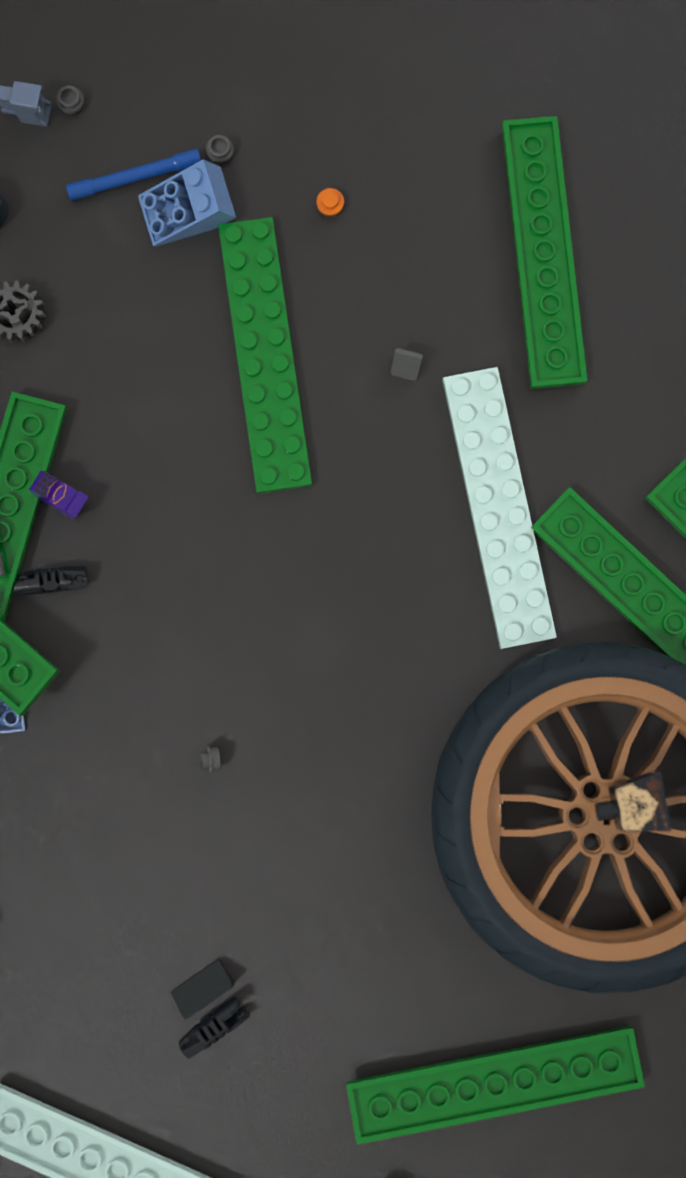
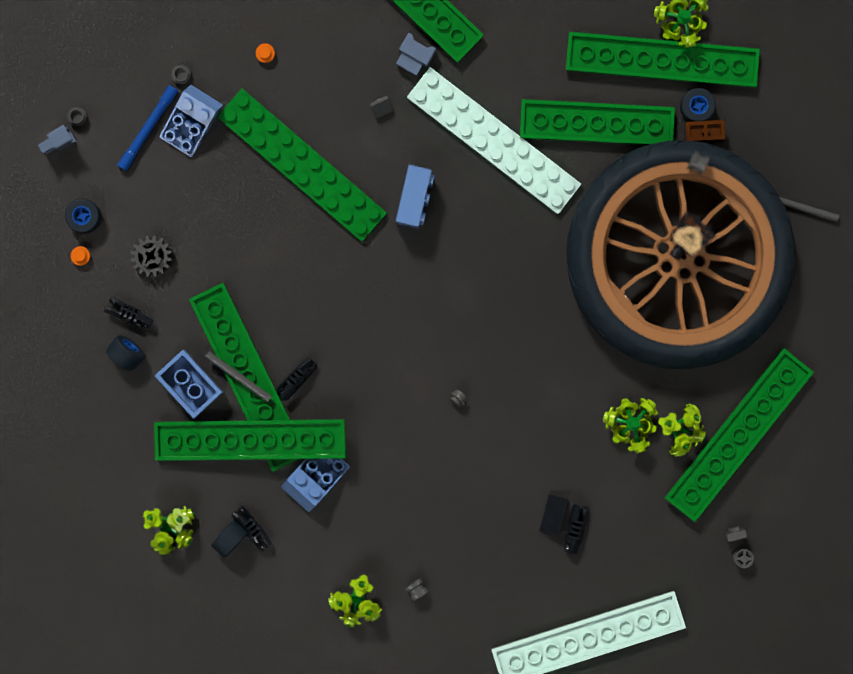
camera: 35 degrees left, 5 degrees up
(58, 494) = (262, 332): dark purple leg -> none
(356, 490) = (414, 197): none -> medium blue brick
(393, 977) = (636, 424): none -> lime plant
(426, 1007) = (682, 442): none -> lime plant
(491, 339) = (414, 55): none -> sand blue piece

